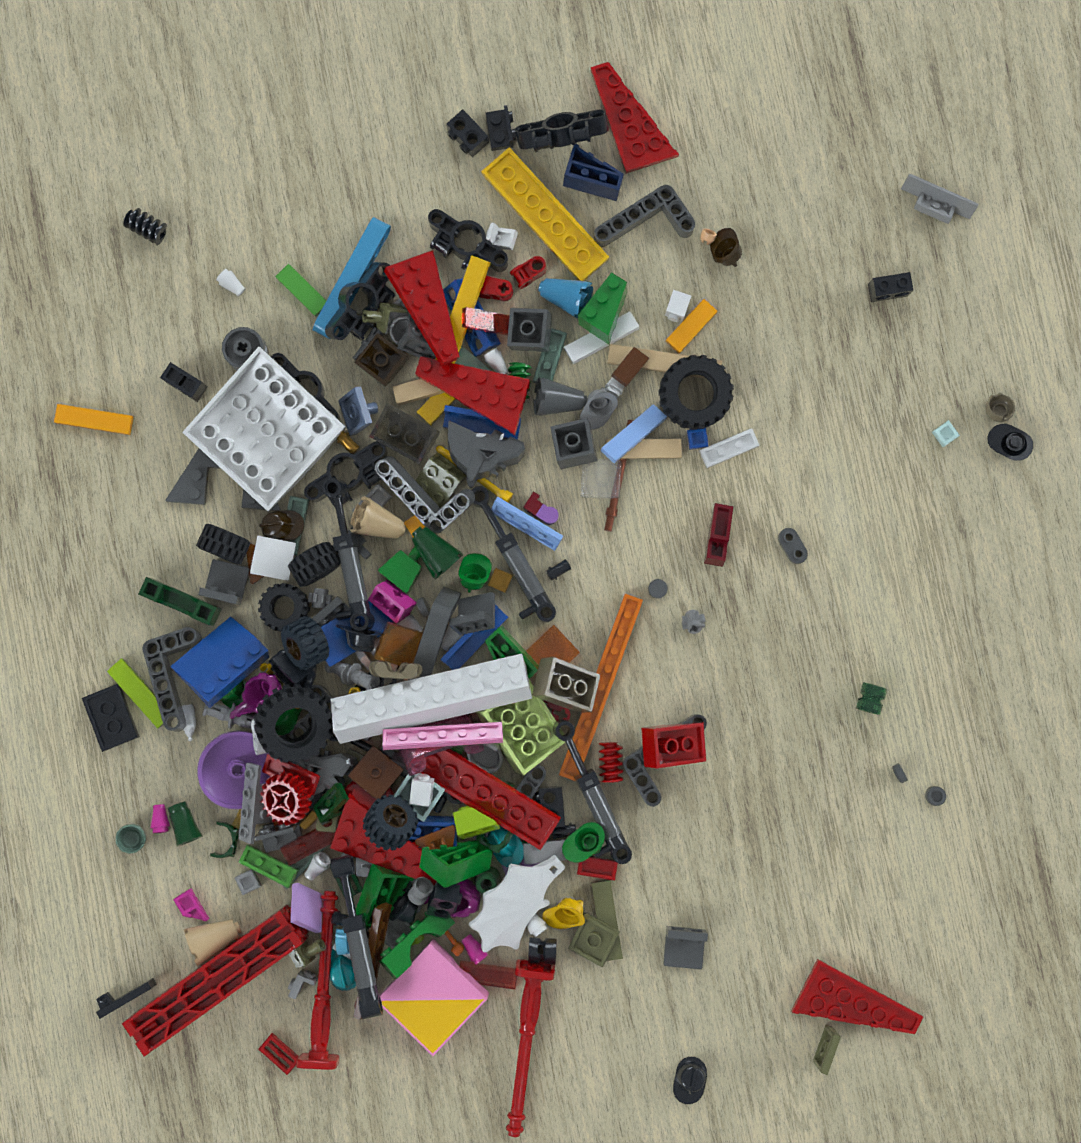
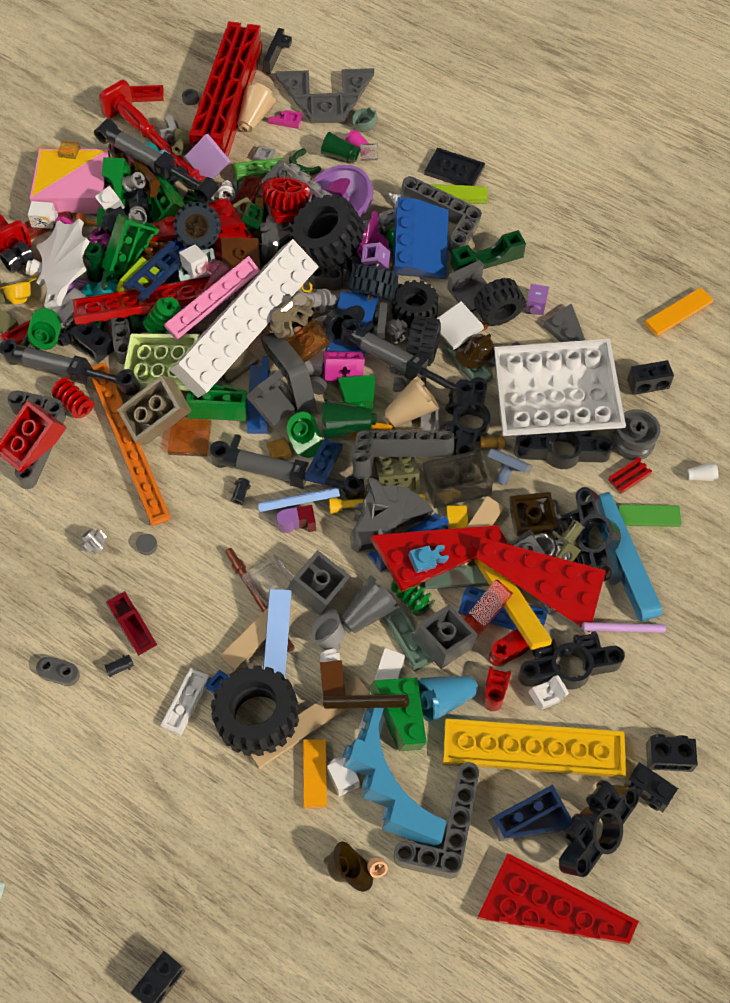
camera: 135 degrees right, 25 degrees down
(146, 887) = (326, 106): none -> dark grey wing
(163, 798) = (369, 152): none -> clear tile
(187, 527) = (537, 299): none -> medium lavender brick
(231, 773) = (338, 186): none -> magenta tile
(247, 1013) = (190, 97): none -> dark grey tile
(265, 327) = (641, 466): none -> red tile
(281, 661) = (375, 253): none -> medium lavender brick
(391, 928) = (135, 181): none -> light grey bush
(408, 232) = (623, 627): none -> lavender bar
(410, 1028) = (68, 149): none -> clear yellow tile
(430, 926) = (109, 200): none -> white brick
(468, 817) = (145, 271): none -> dark blue bar
(482, 533) = (323, 462): none -> dark blue plate
(487, 976) = (42, 214): none -> white brick
(491, 761) = (160, 314): none -> green piece
(495, 361) = (446, 594): white cone -> none
(495, 384) = (425, 559): none -> dark azure plate
(625, 327) = (365, 701): none -> dark brown axle
(665, 274) = (401, 813): none -> dark azure arch
(750, 511) = (119, 665): none -> black pin

